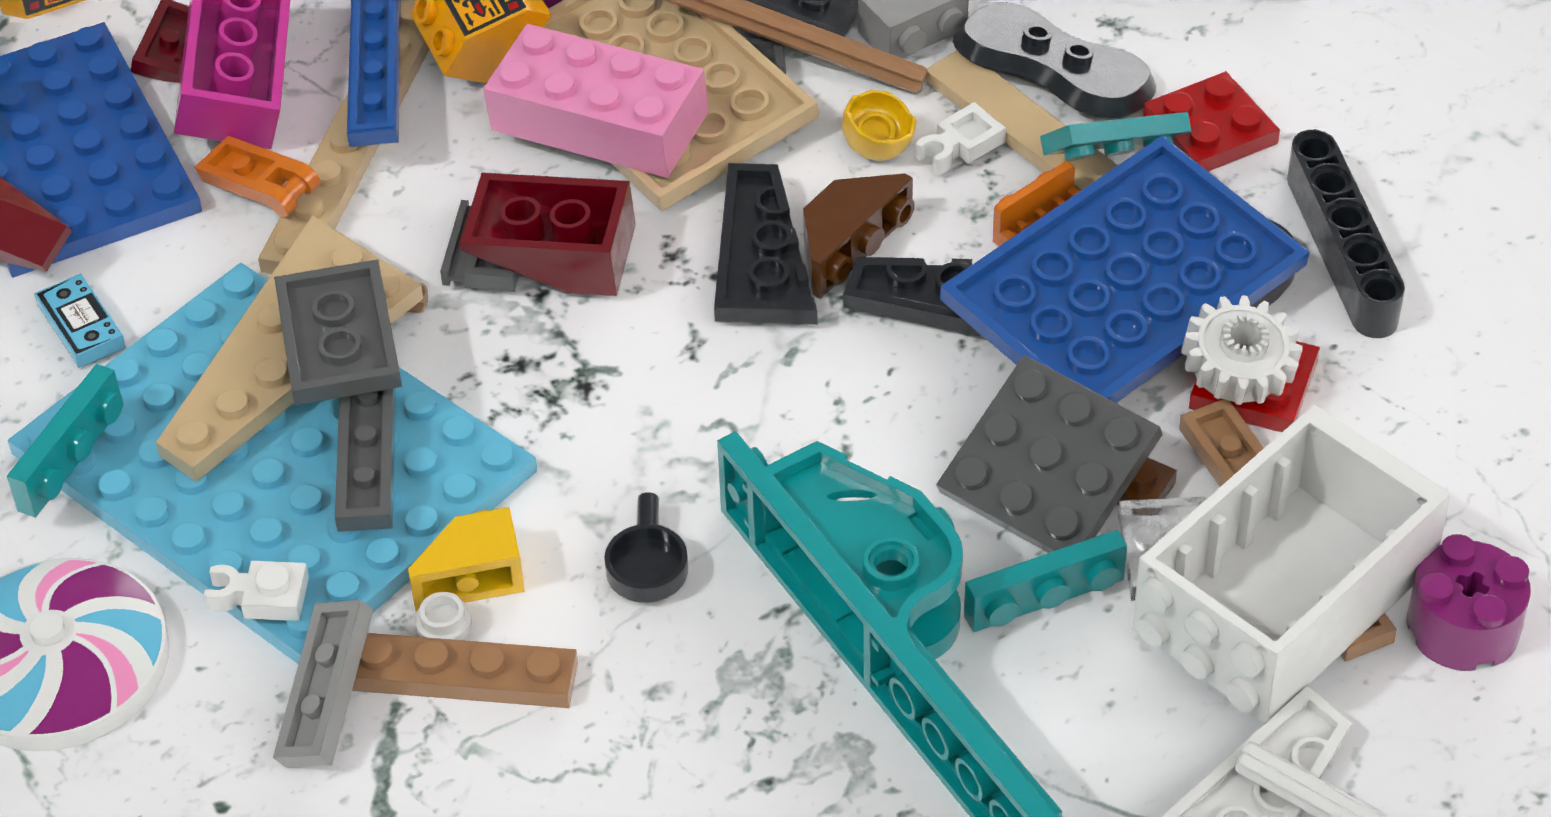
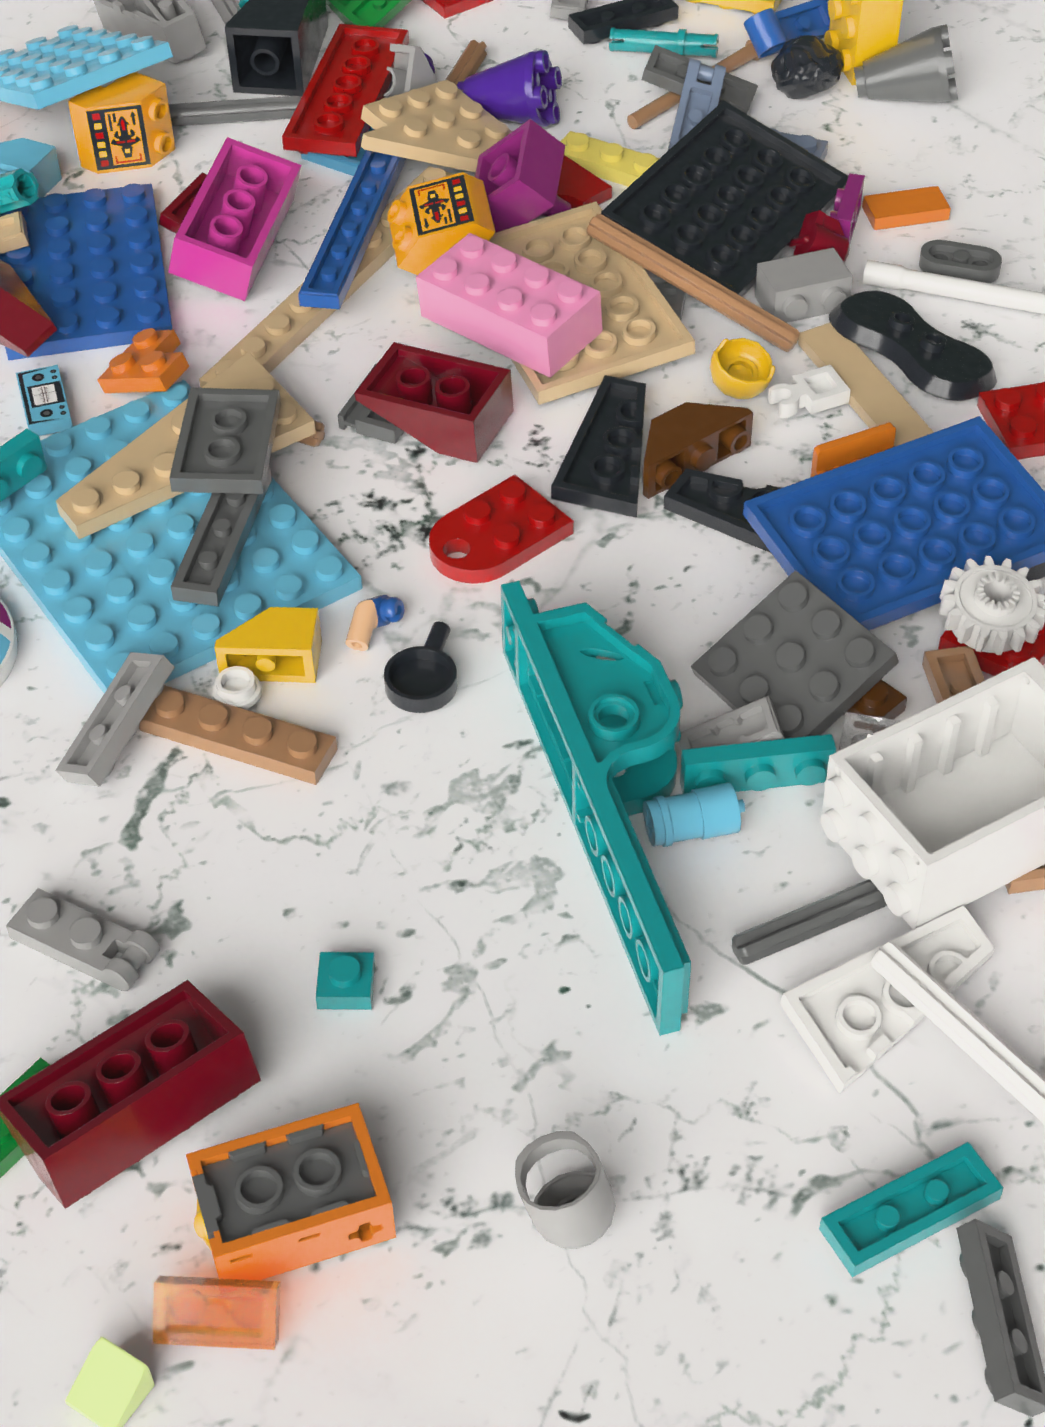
camera: 15 degrees right, 0 degrees up
(188, 255) = (146, 364): none -> orange plate
(258, 174) = (222, 315): orange plate -> none
(265, 592) = (97, 636): white plate -> none
(562, 501) = (370, 615): none -> light nougat arm
(670, 370) = (496, 532): none -> red plate
(996, 650) = (693, 815): none -> medium azure piece
(1016, 541) = (743, 725): none -> light grey plate
(1113, 136) = (938, 410): teal plate -> none
(1150, 739) = (807, 922): none -> dark grey axle

